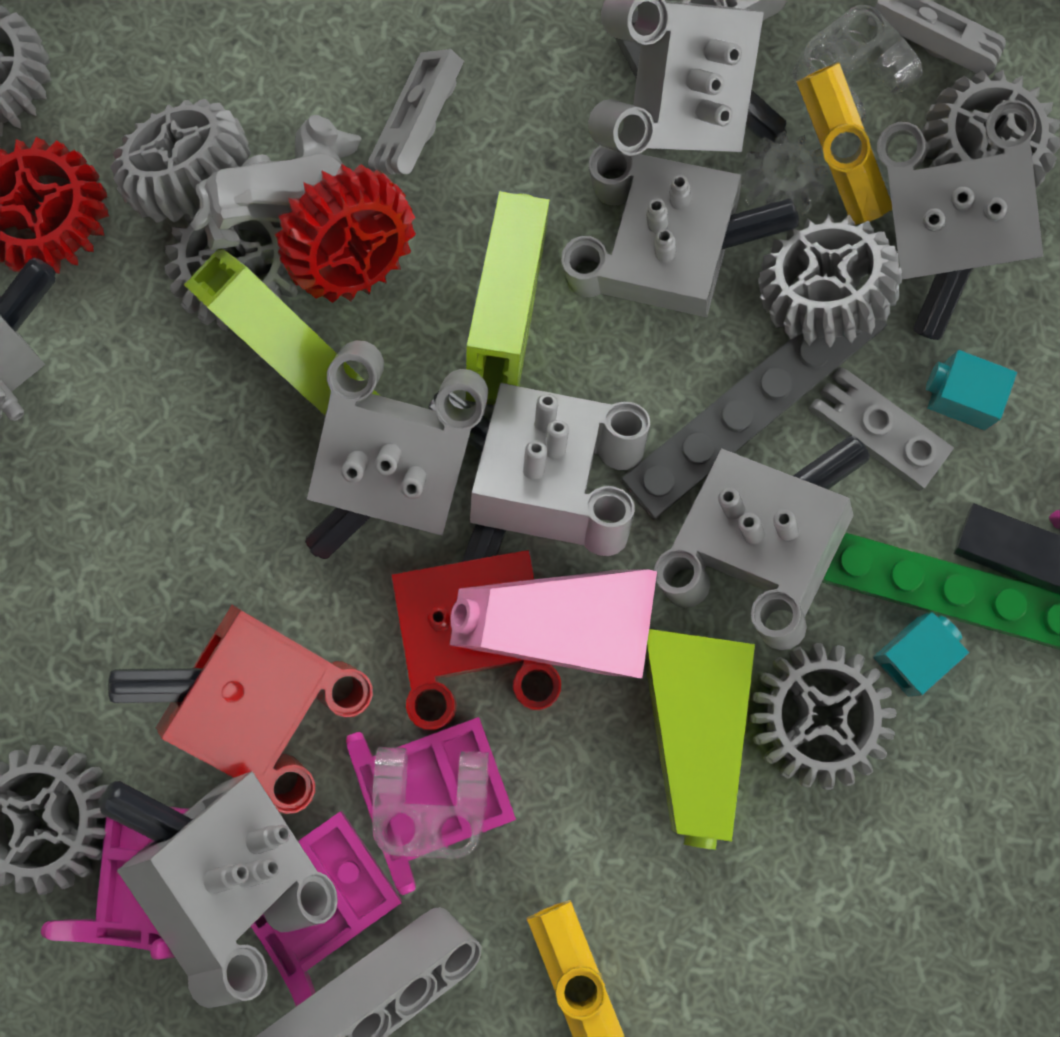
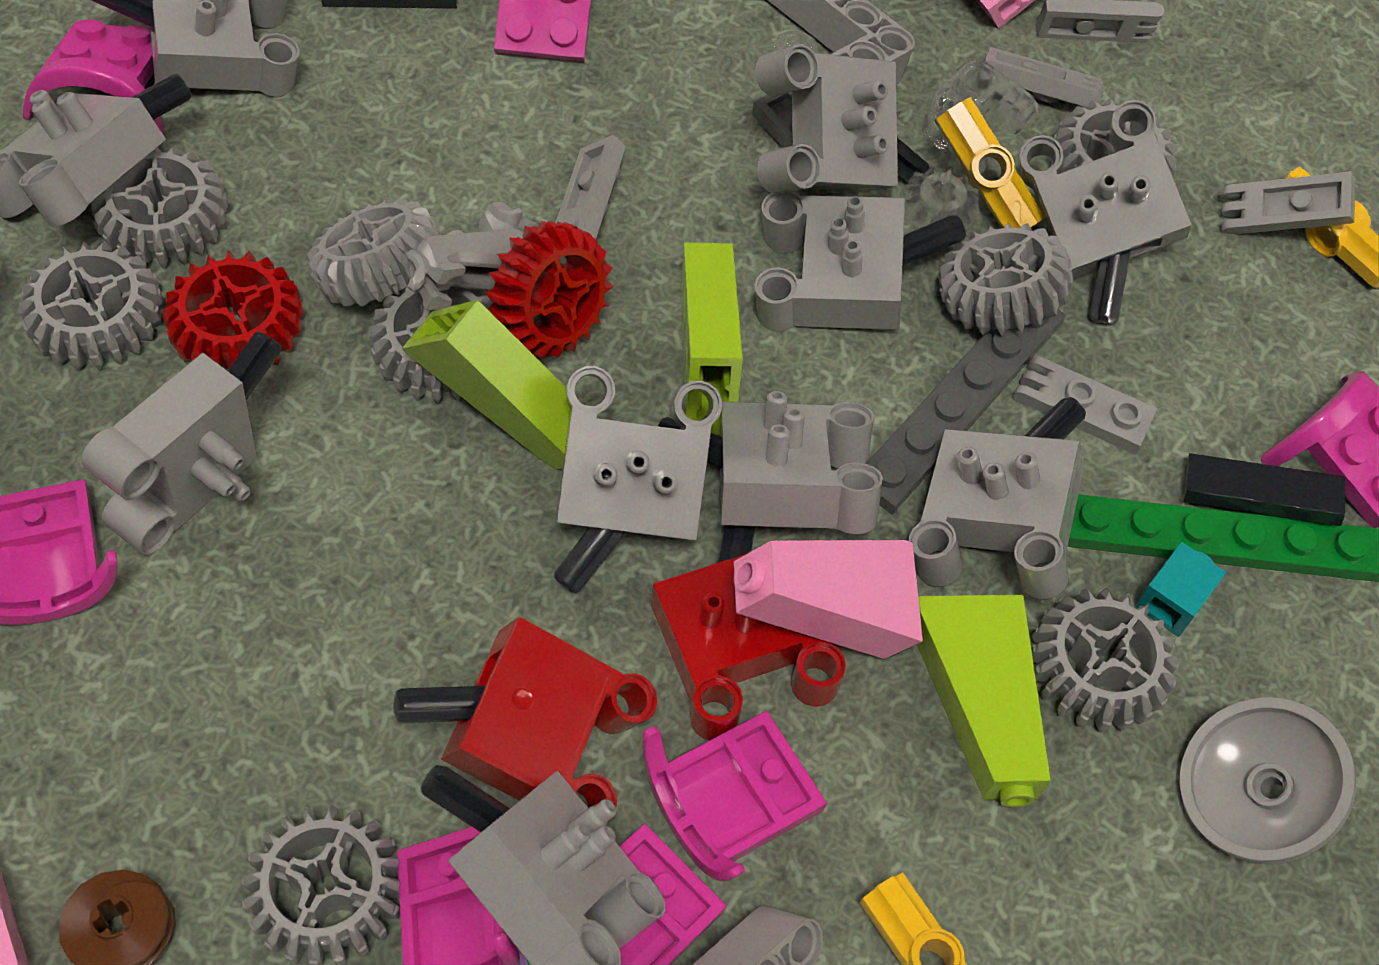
camera: 15 degrees left, 20 degrees down
(390, 796) = (741, 798): clear piece -> none
(909, 885) = (1259, 746): none -> light grey dish
(970, 389) = (1157, 356): teal brick -> none

